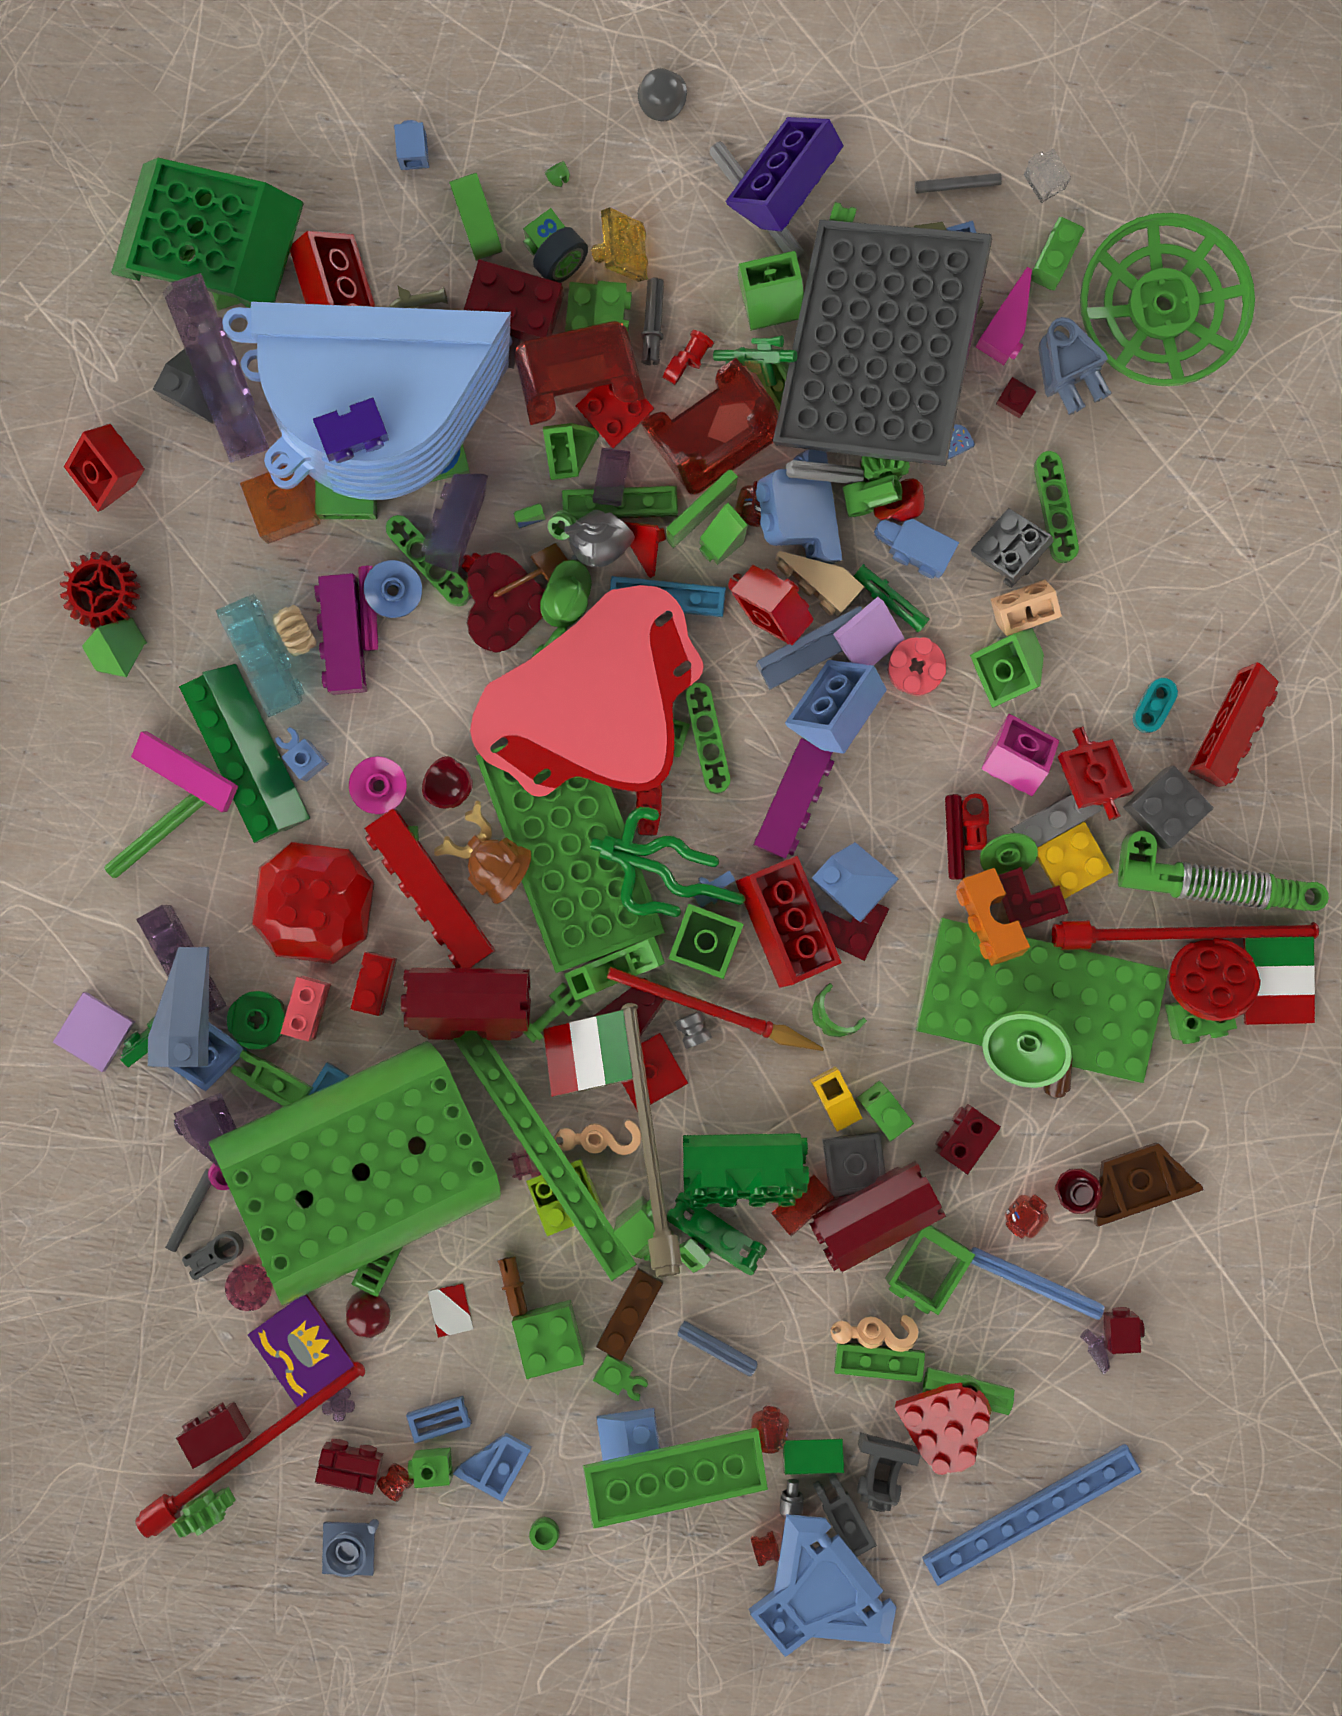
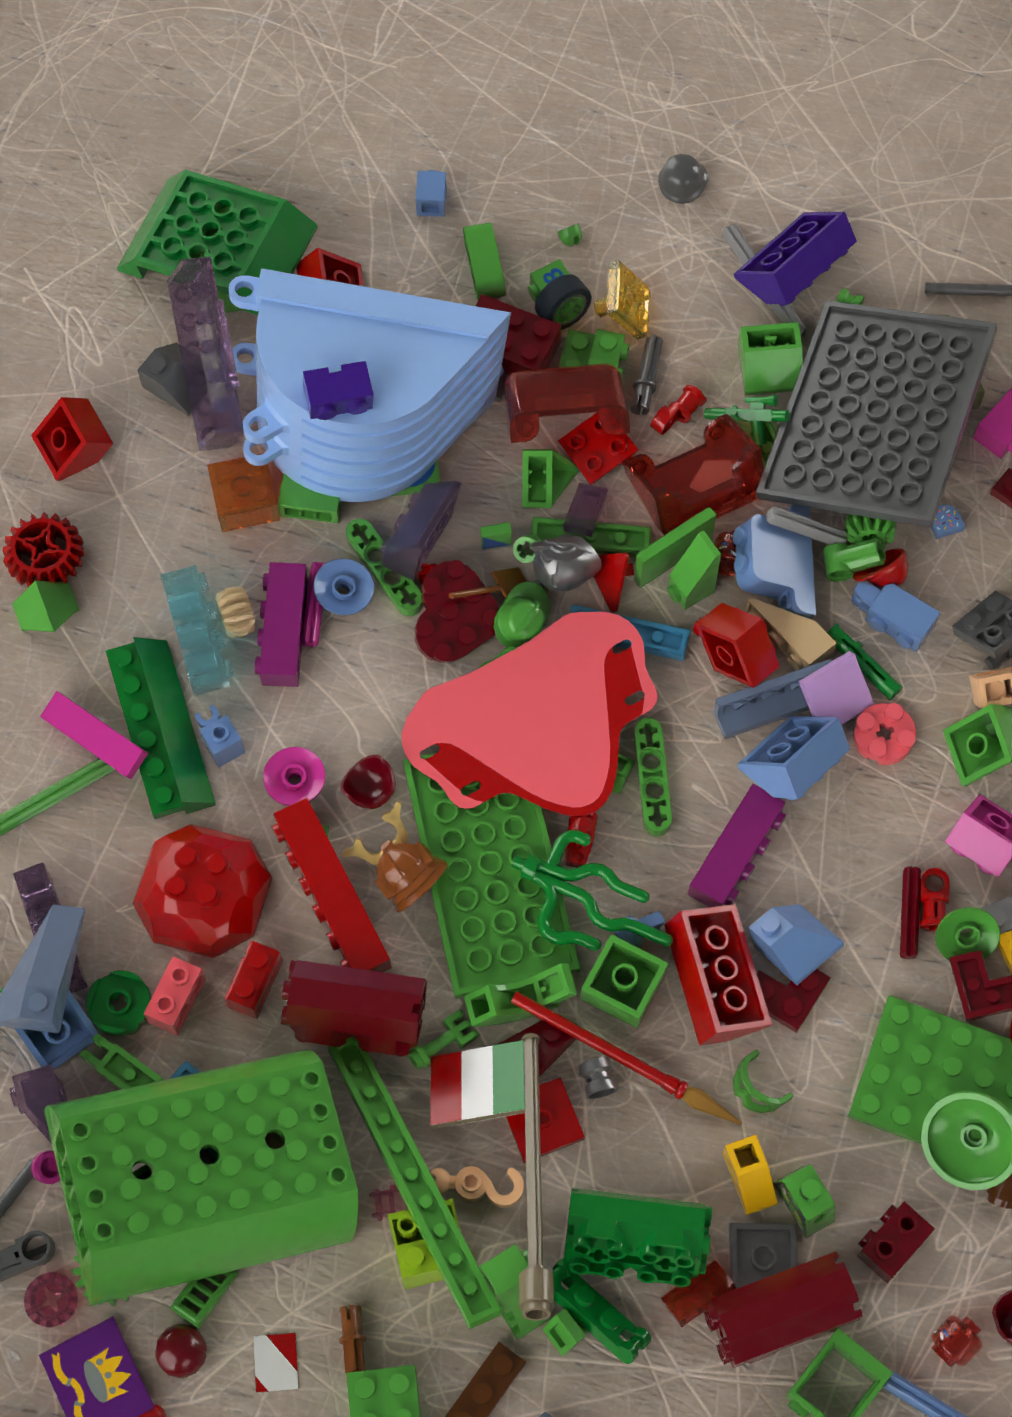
camera: 10 degrees right, 20 degrees down
(998, 940) = (948, 1020): orange arch -> none

